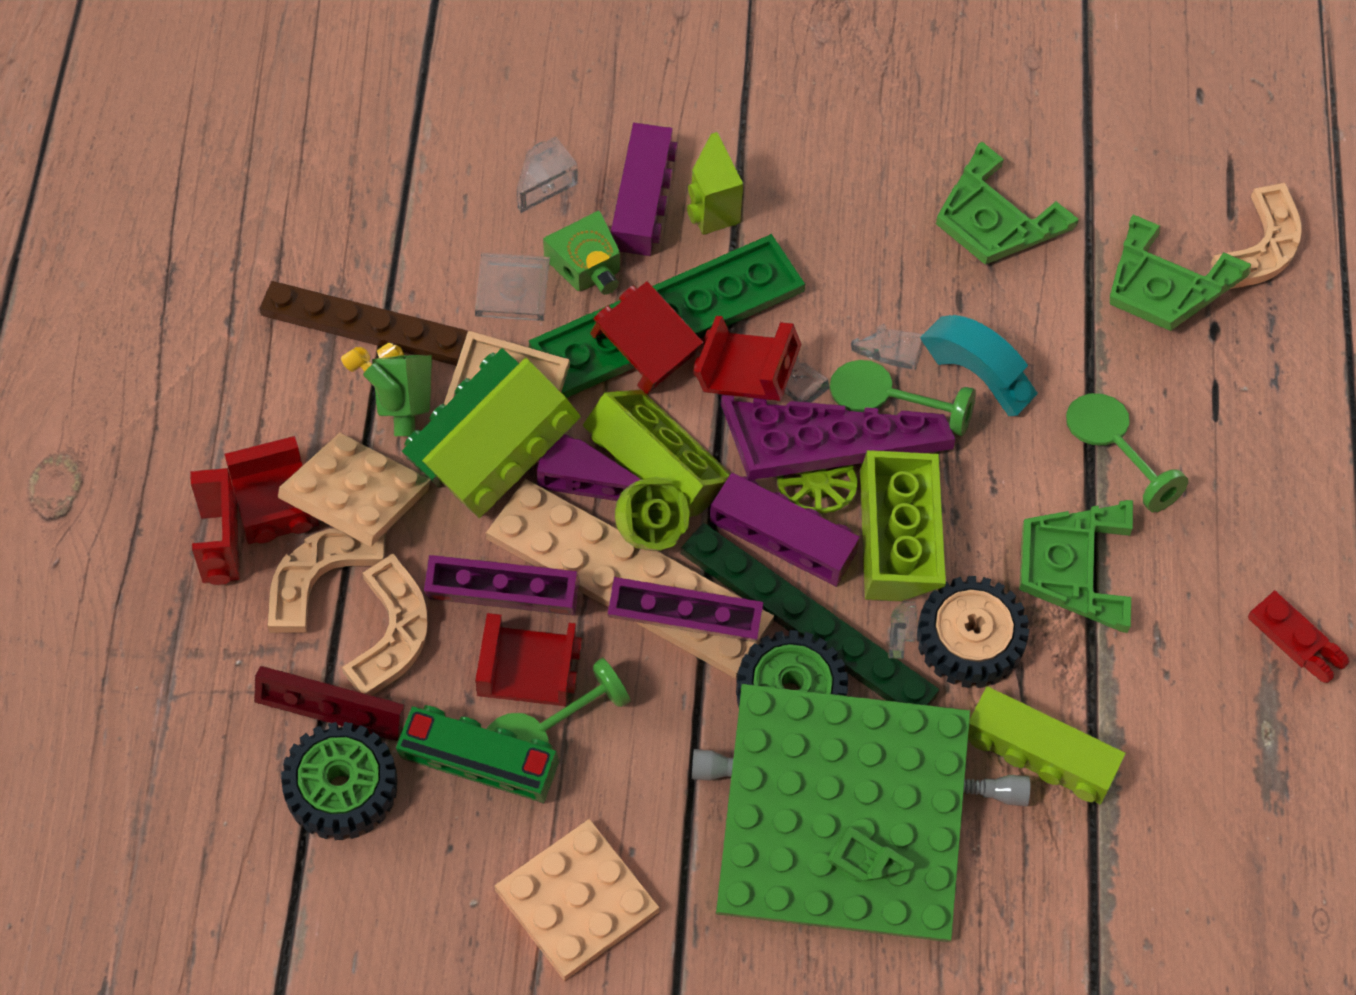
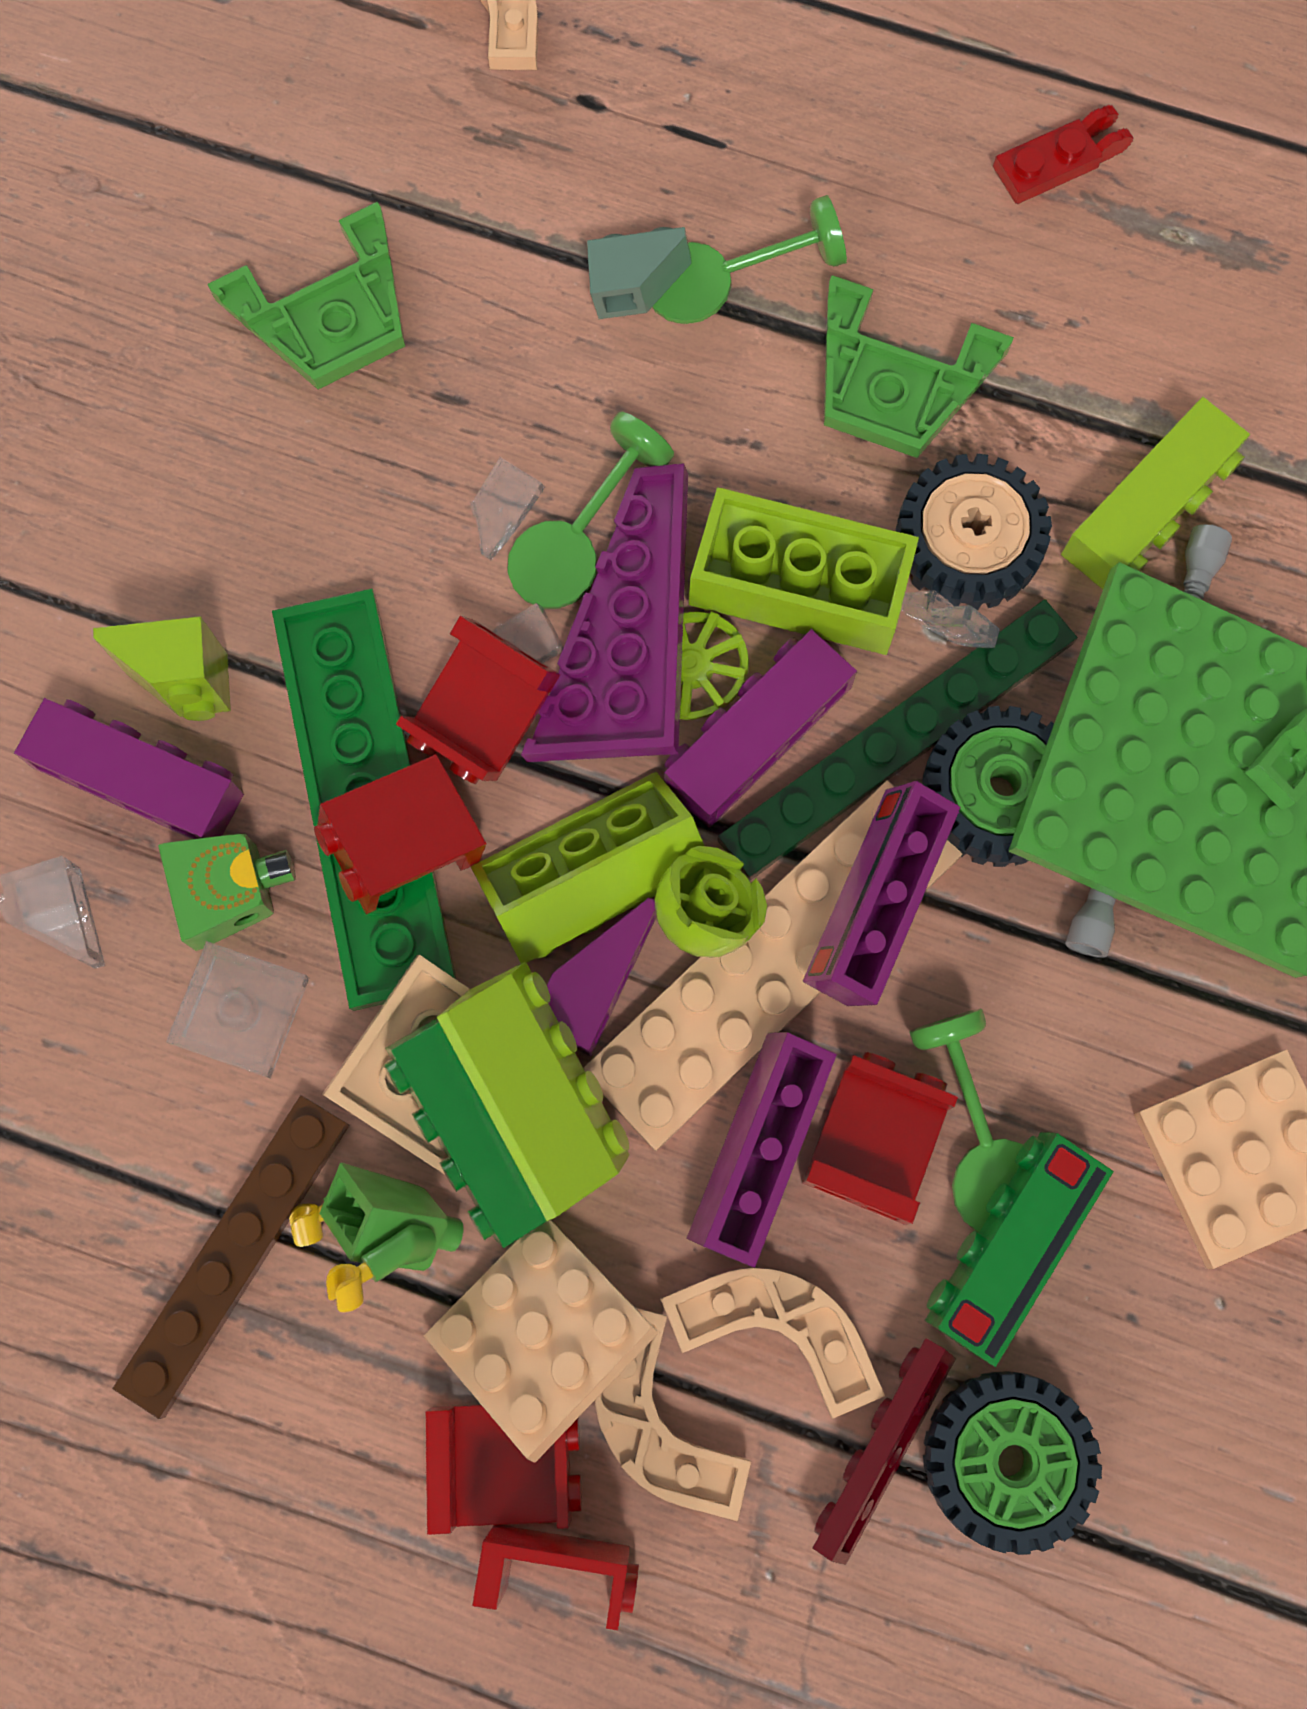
camera: 70 degrees left, 15 degrees up
(985, 353) = (560, 388): teal arch -> none
(1087, 380) = (635, 269): none -> sand green slope
(1164, 290) = (516, 140): bright green wing -> none

